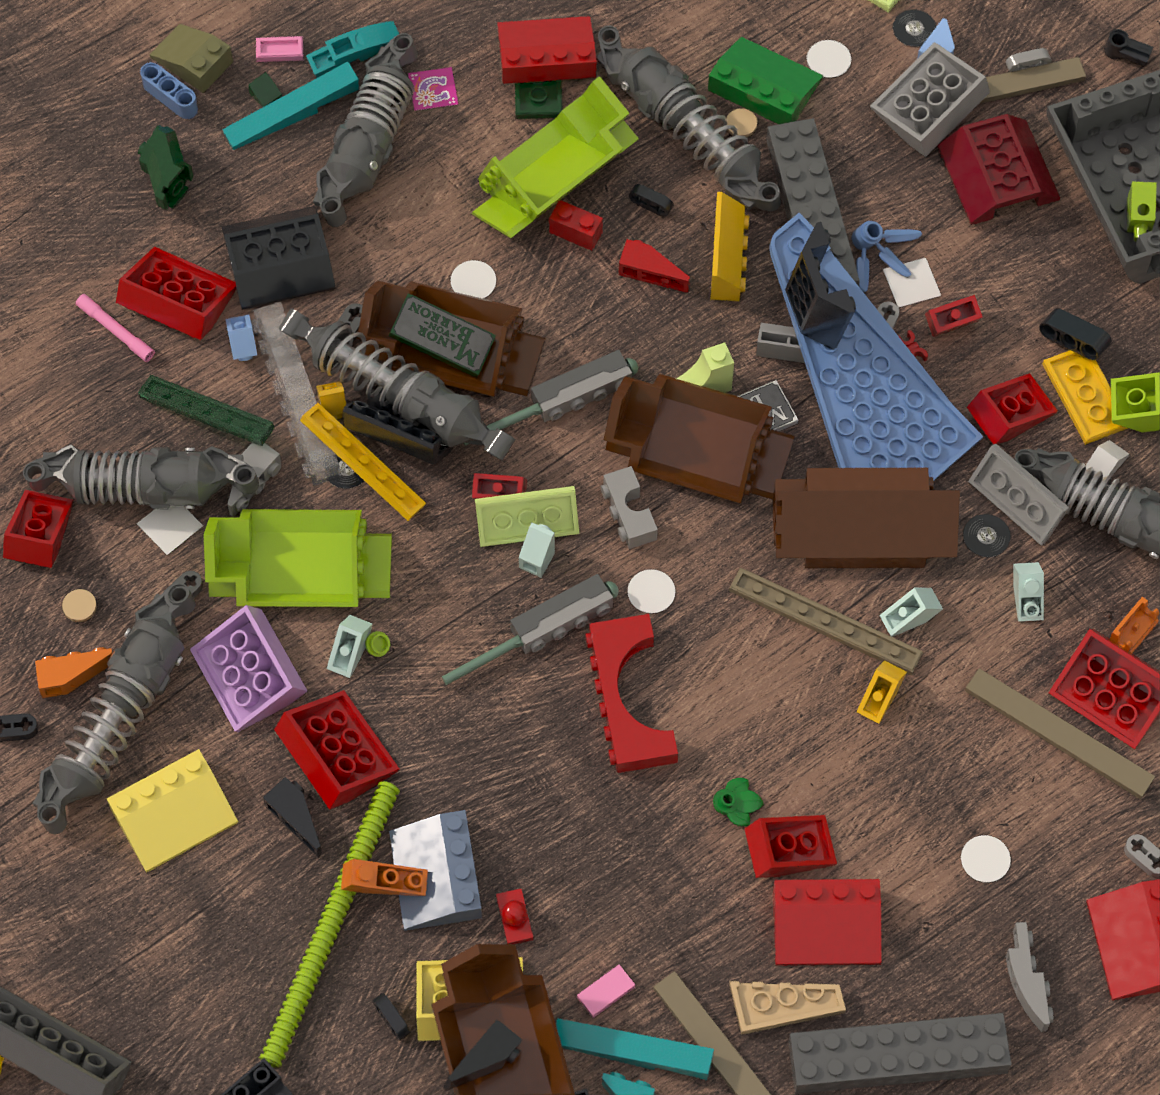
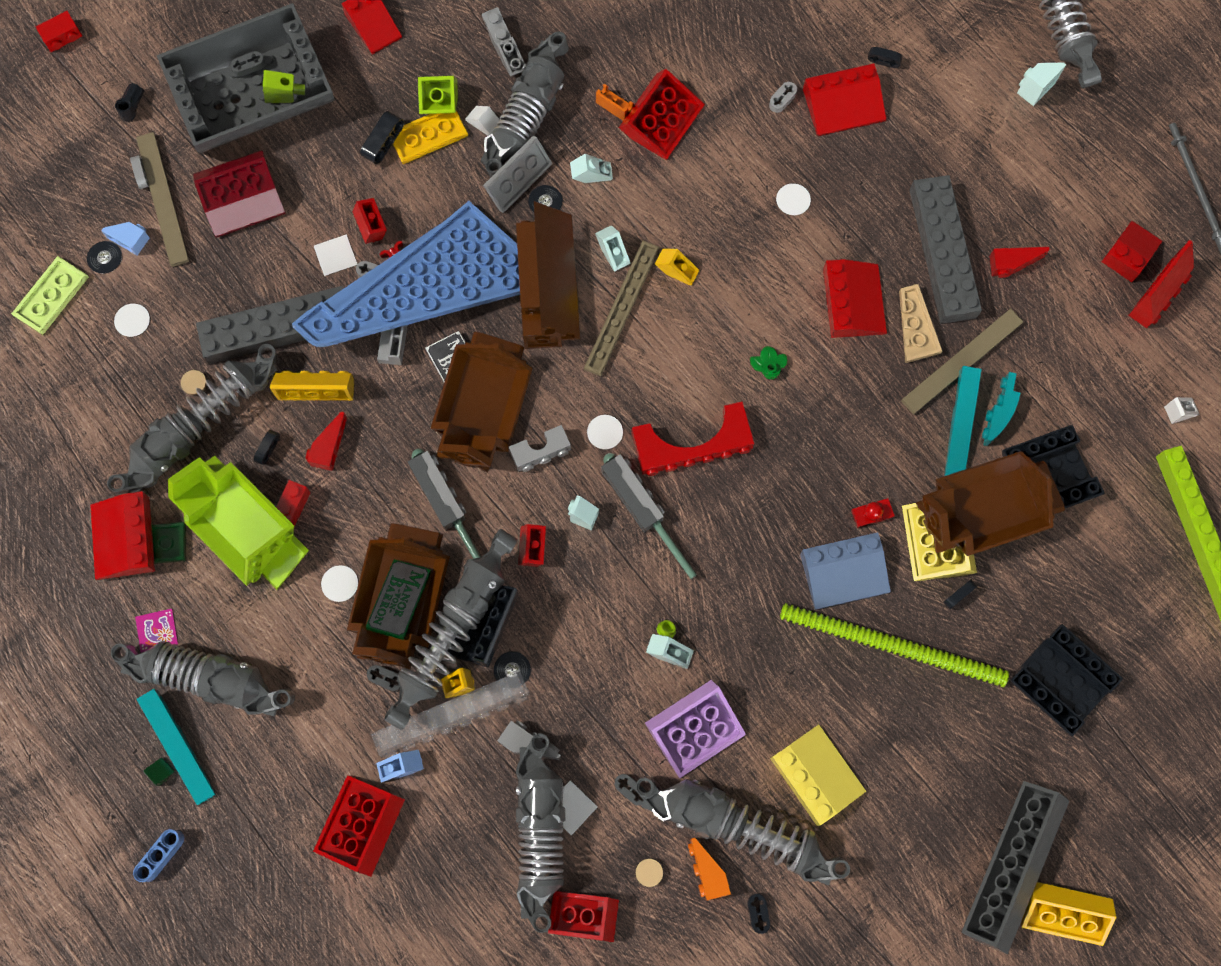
camera: 95 degrees left, 10 degrees up
(135, 344) = (378, 894): bright pink piece -> none
(165, 165) = (239, 848): dark green brick -> none
(193, 56) = (121, 840): olive slope -> none
(206, 410) = (473, 786): clear green plate -> none
(279, 49) = (115, 764): bright pink tile -> none
(279, 257) = (322, 742): black slope -> none
(290, 807) = (808, 681): black slope -> none
(296, 558) = (599, 698): lime panel -> none
(335, 748) = (755, 653): red slope -> none
(350, 46) = (118, 697): teal slope -> none
(363, 461) = (514, 653): yellow plate -> none
(383, 878) = (863, 607): orange slope -> none
(488, 1055) = (1000, 511): black slope -> none
(509, 516) = (555, 522): yellowish green tile -> none
(606, 991) = (920, 446): bright pink tile -> none
(712, 369) = (427, 393): yellowish green arch -> none
(763, 81) = (155, 366): green slope -> none
(789, 845) = (801, 325): red slope -> none
(817, 312) = (371, 305): black slope -> none
(869, 235) = (300, 279): medium blue plant -> none
(931, 98) = (175, 238): light grey slope -> none
(1011, 408) = (444, 182): red slope -> none
(1028, 986) = (886, 169): light grey slope -> none
(1060, 733) = (697, 152): dark tan tile -> none

